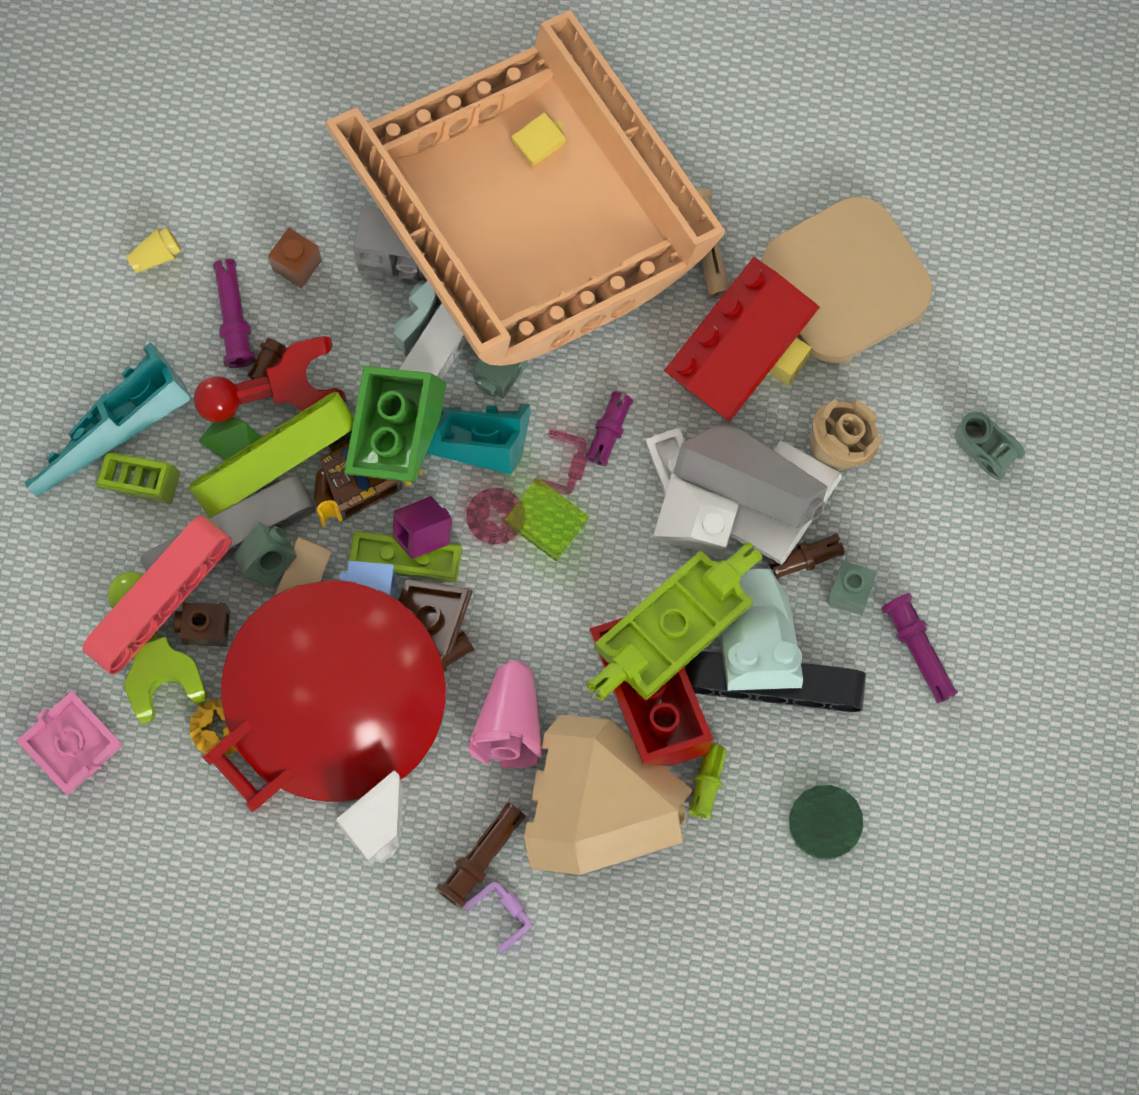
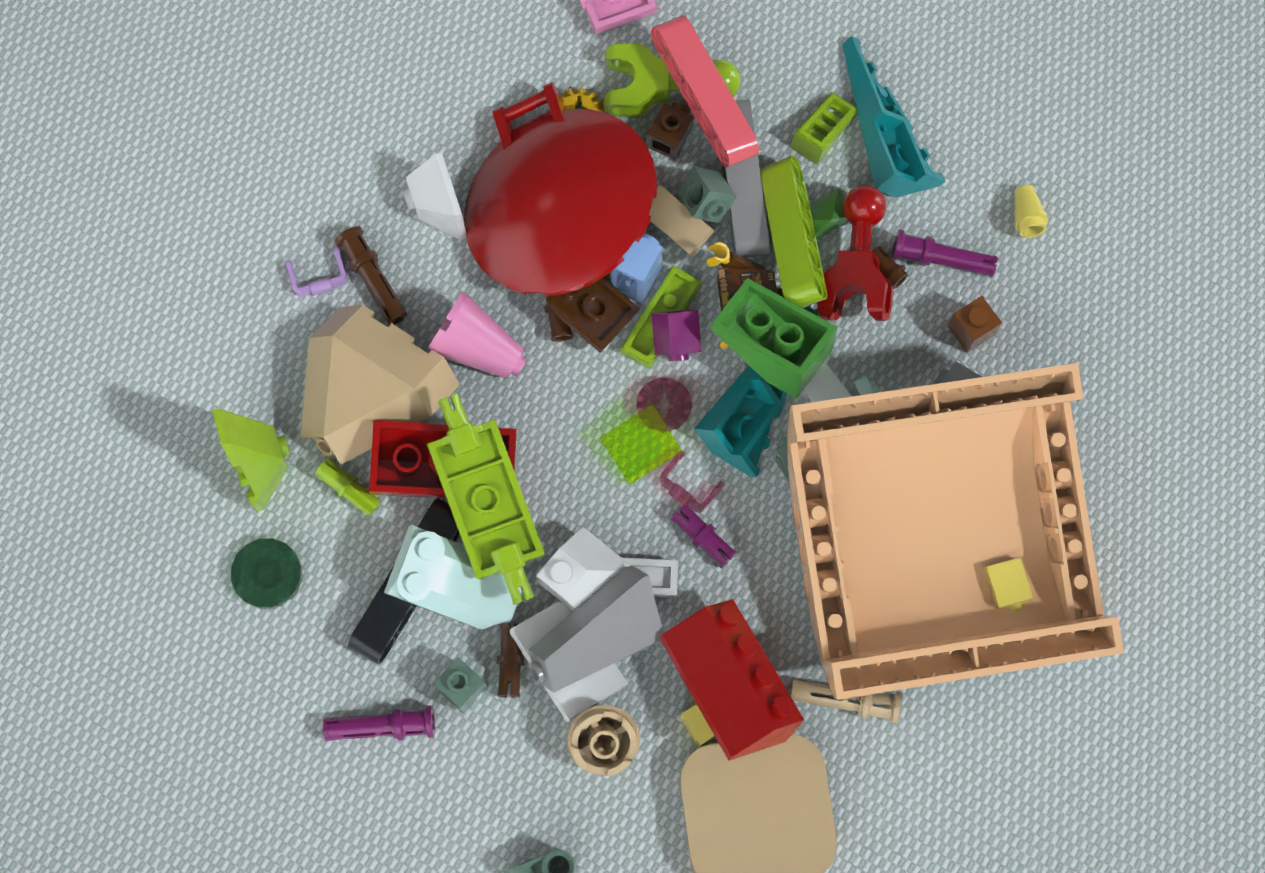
camera: 110 degrees right, 0 degrees up
(721, 873) = (254, 452): none -> lime wedge

